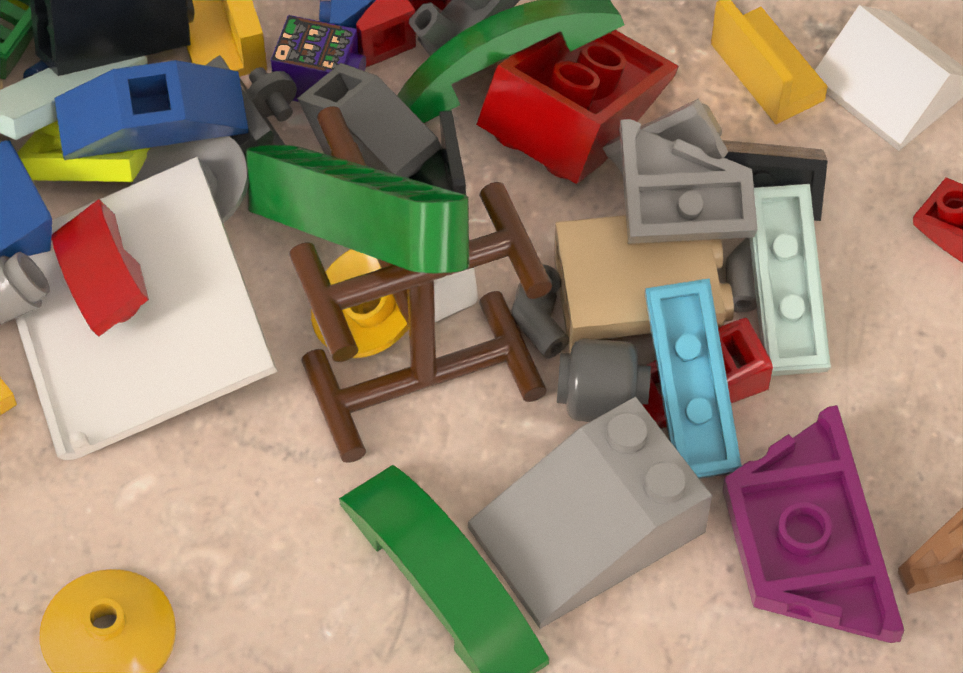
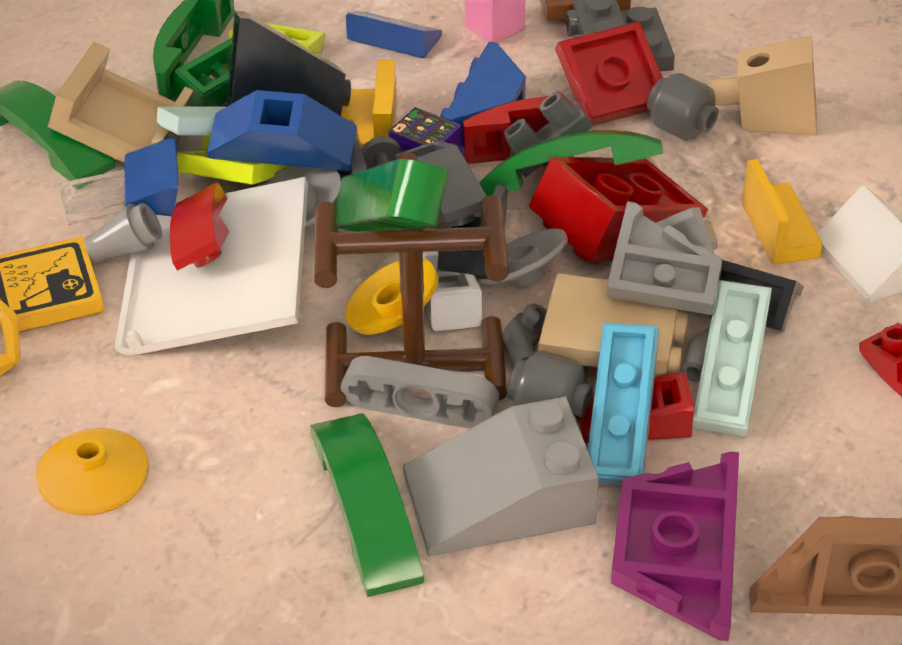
camera: 20 degrees right, 15 degrees down
(452, 422) = (385, 373): none -> light grey beam
(525, 180) = (529, 255): none -> light grey dish

